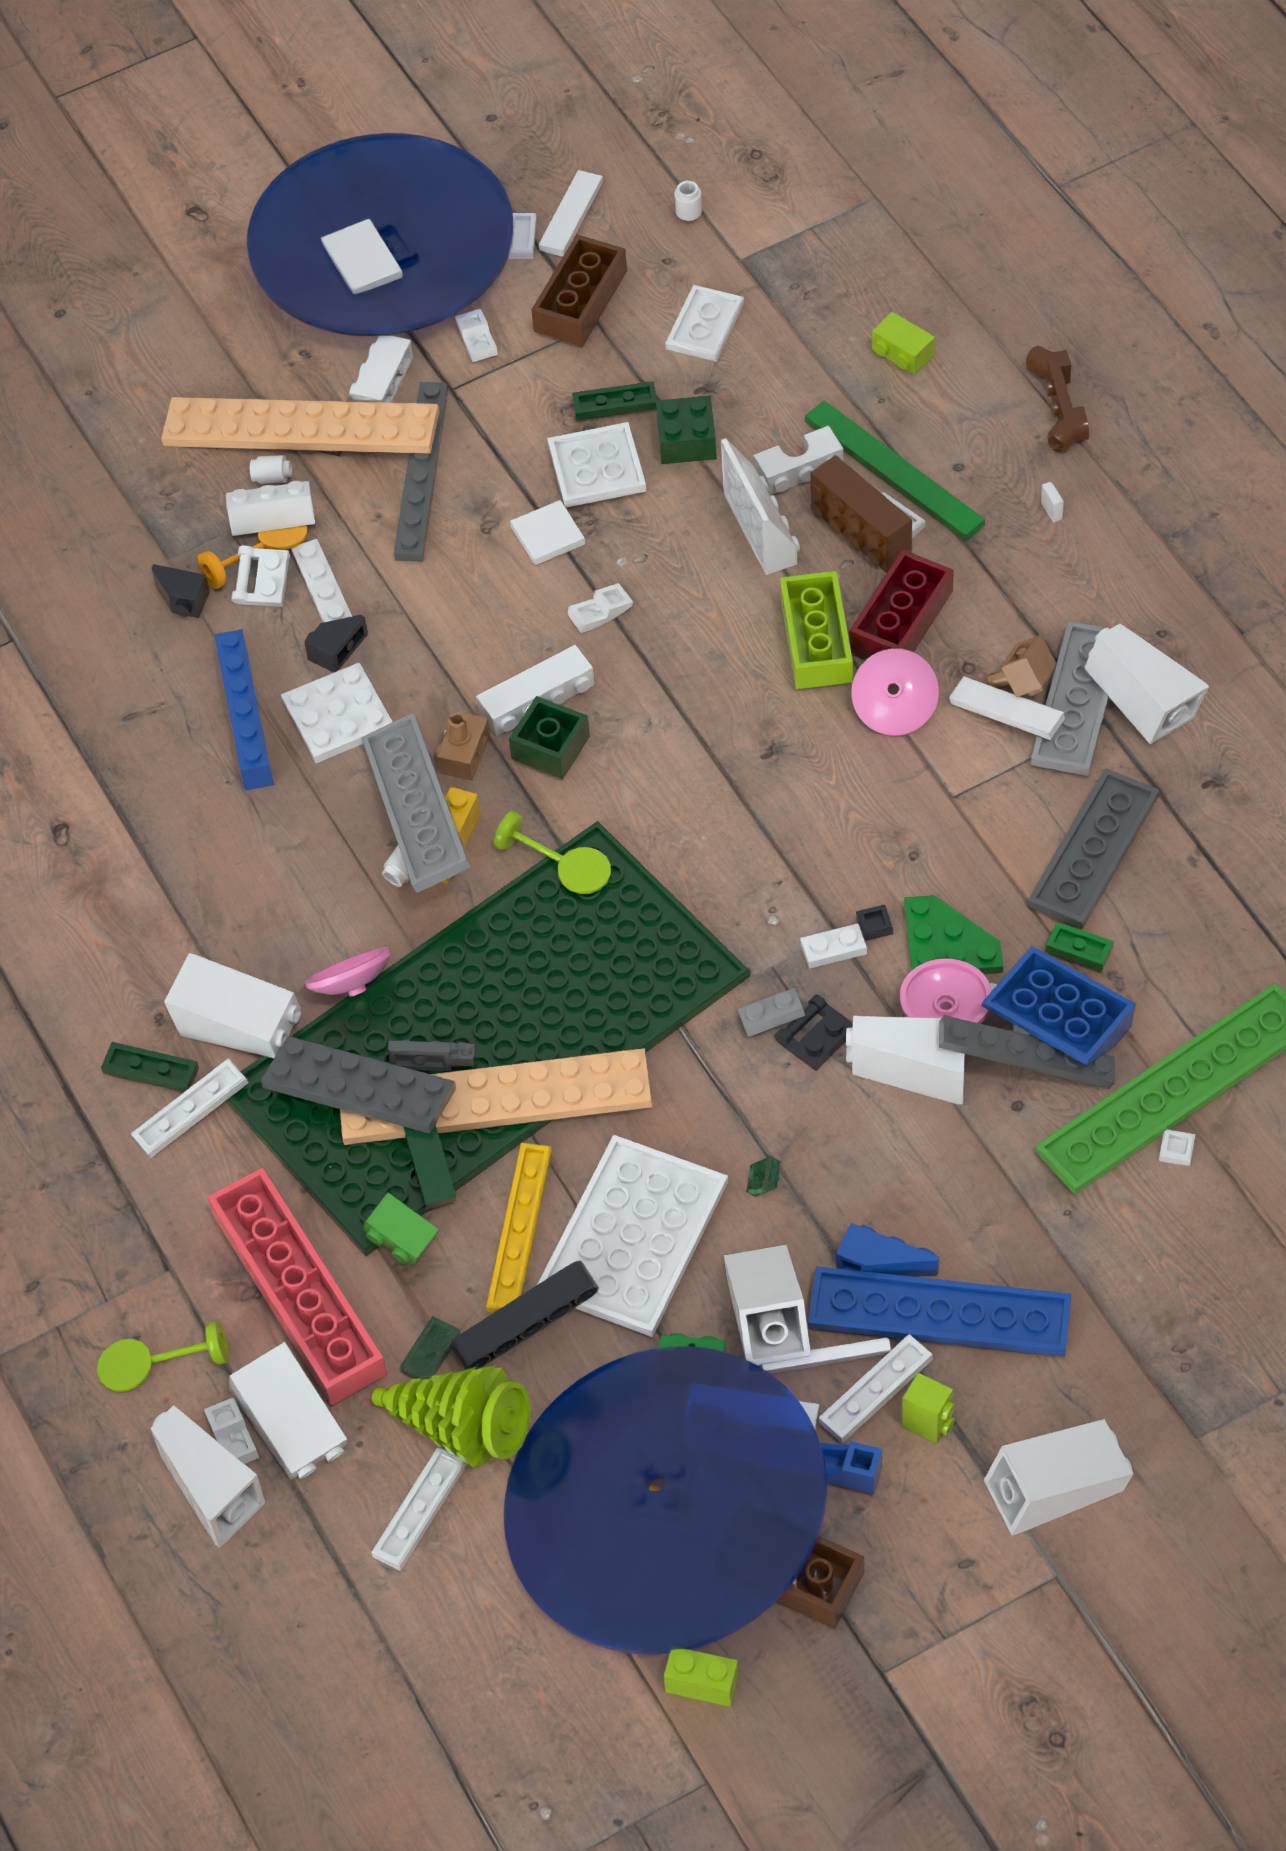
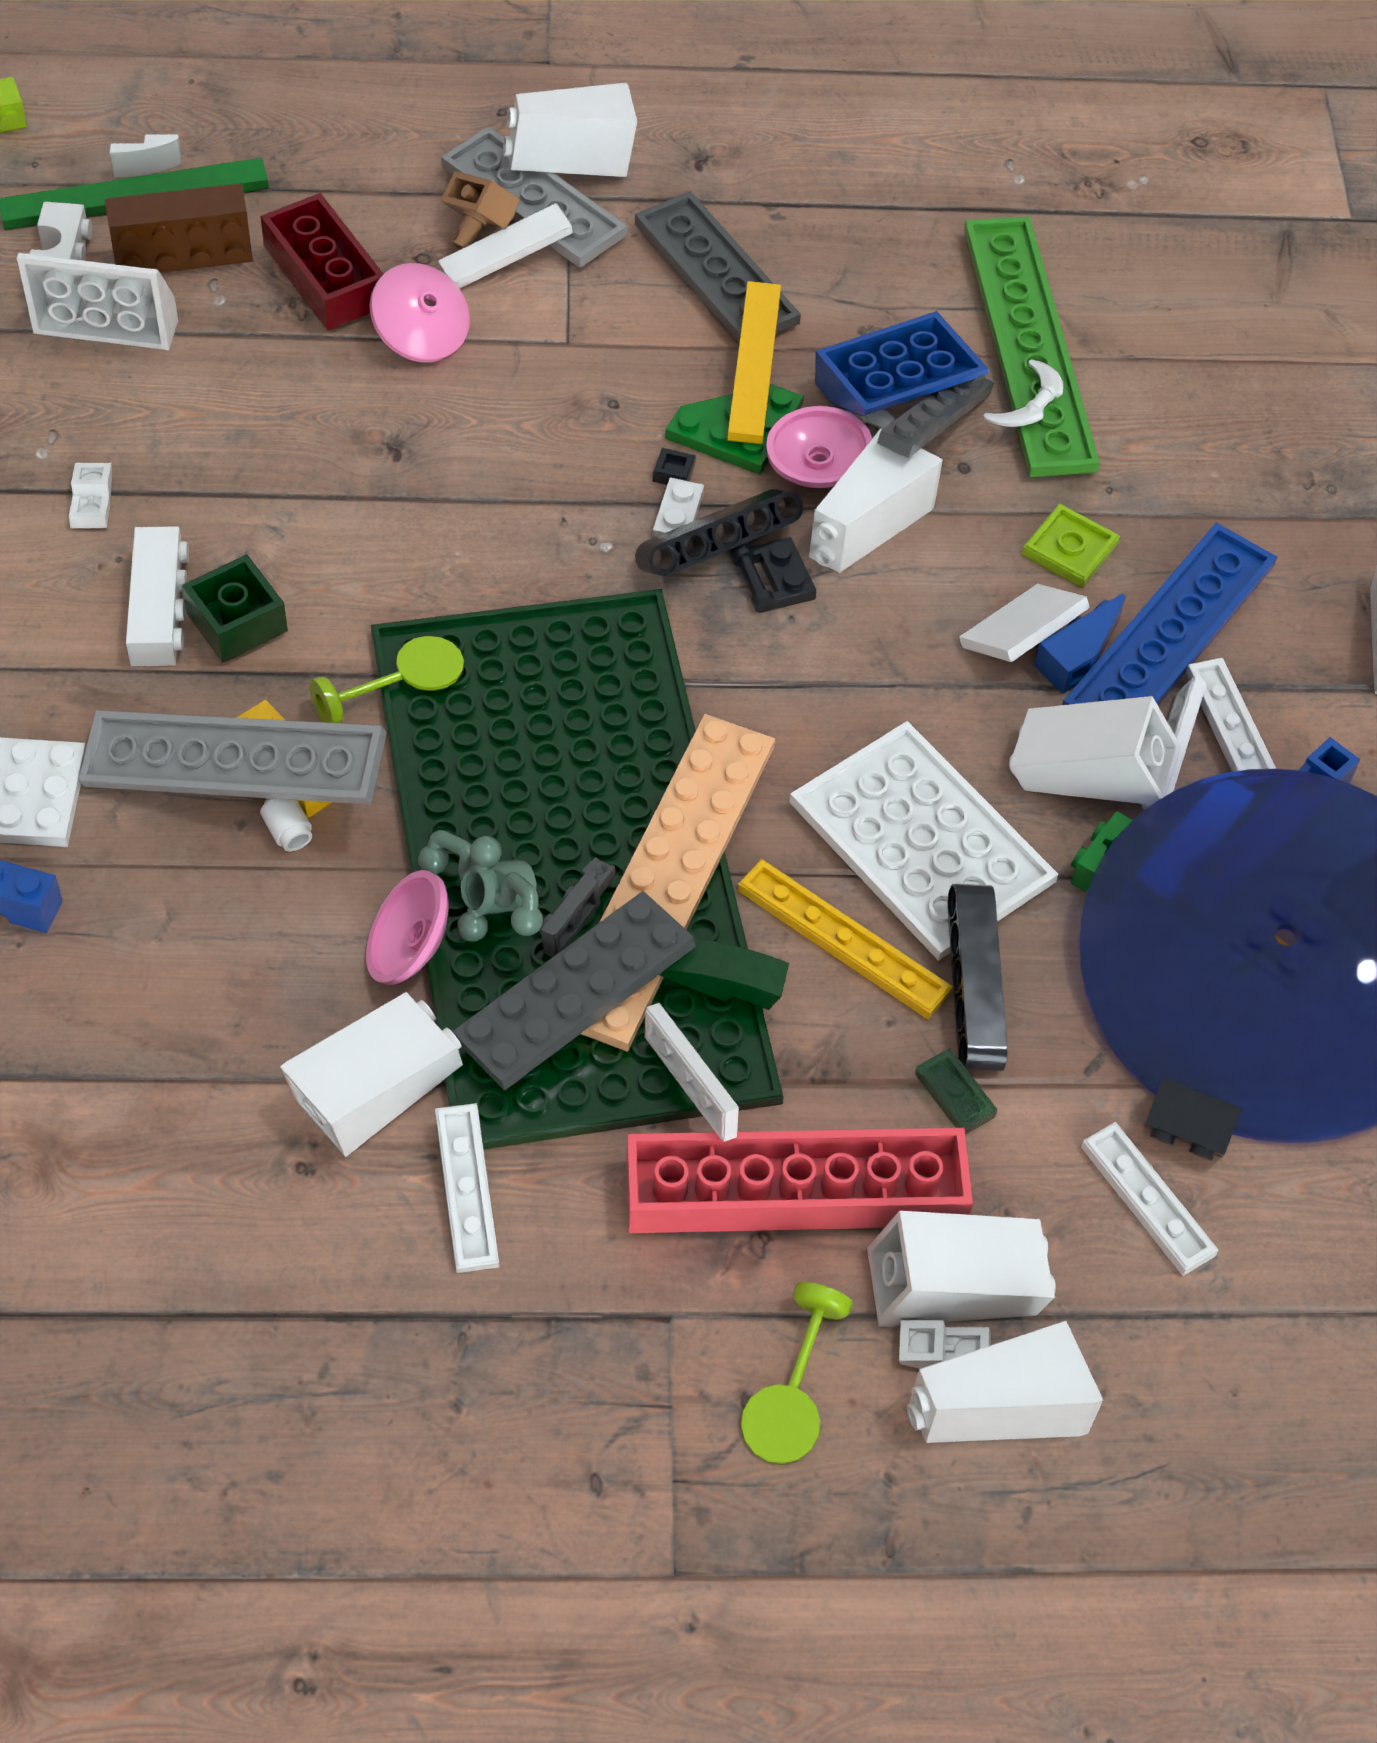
camera: 70 degrees left, 0 degrees up
(149, 1067) = (376, 1204): dark green plate -> none
(330, 1178) = (691, 1072): none -> white tile
(400, 1230) = (789, 1042): bright green brick -> none
(404, 995) = (486, 883): none -> sand green wheel
(462, 745) = (171, 687): medium nougat brick -> none
(464, 1411) = (1076, 1085): lime plant -> none
(490, 1502) = (1192, 1119): none -> black brick
(763, 1176) = (925, 693): clear green plate -> none
(771, 1012) = (728, 594): light grey plate -> none
(808, 978) = (704, 532): none -> black beam
(816, 630) = (289, 333): lime brick -> none
(871, 1207) = (1024, 622): none -> white tile
(928, 1408) = (1293, 684): lime brick -> none
(932, 457) = (139, 159): none -> white slope
(985, 1209) = (1071, 545): none -> lime tile
(1004, 916) = (754, 363): none -> yellow tile
(1052, 502) = (288, 102): white tile -> none
(1071, 422) = (131, 24): reddish brown plate -> none
(1079, 946) = (821, 331): green plate -> none
(1087, 1118) = (1050, 388): none -> white piece
(1177, 1147) = (1093, 377): white tile -> none

